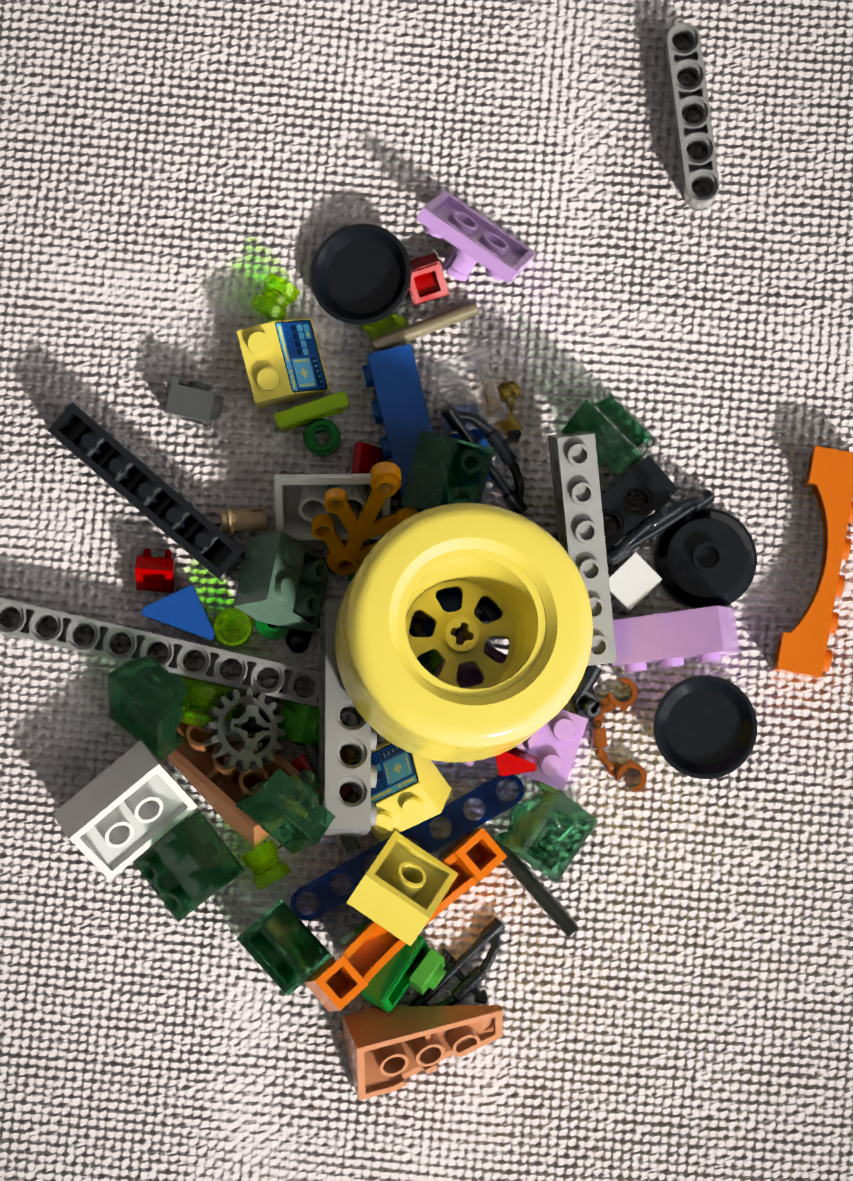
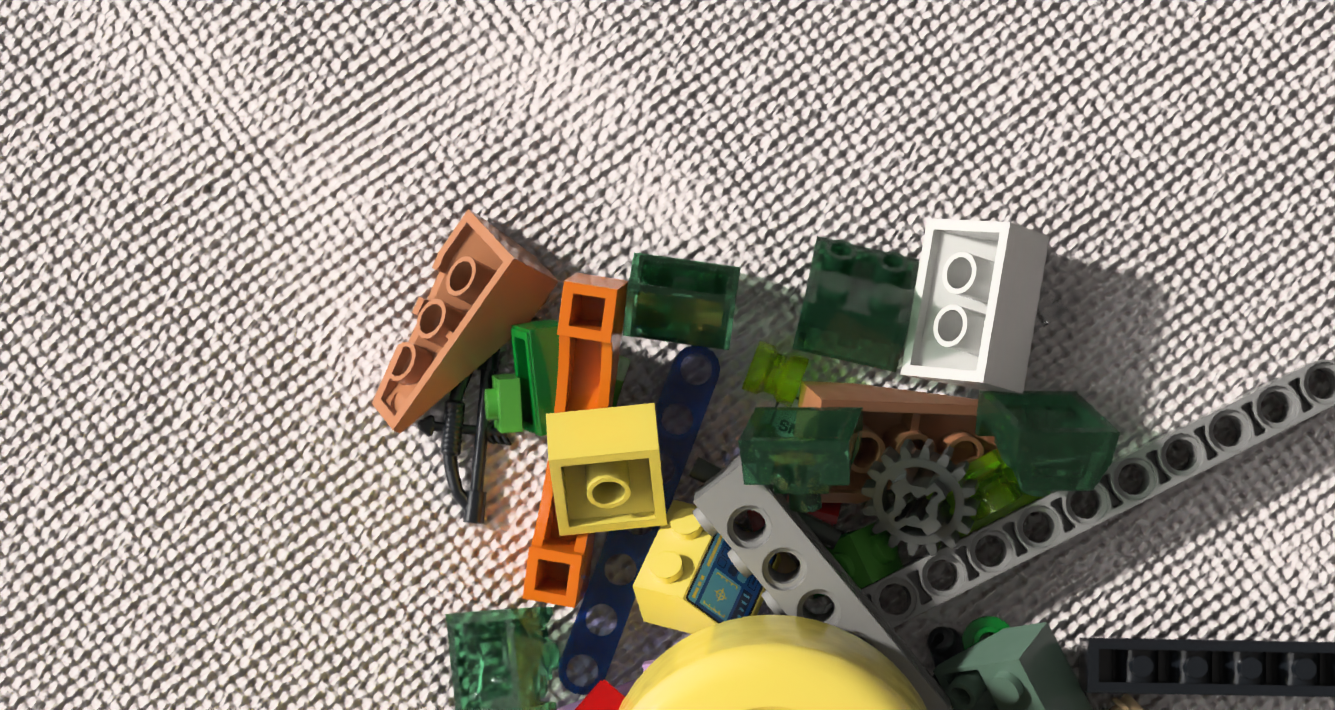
camera: 140 degrees right, 0 degrees up
(154, 572) = (1160, 587): red tile -> none
(182, 611) = (1093, 570): blue slope -> none
(237, 631) = (1017, 598): clear neon green wheel -> none
(538, 892) = (457, 588): pearl dark grey bar -> none

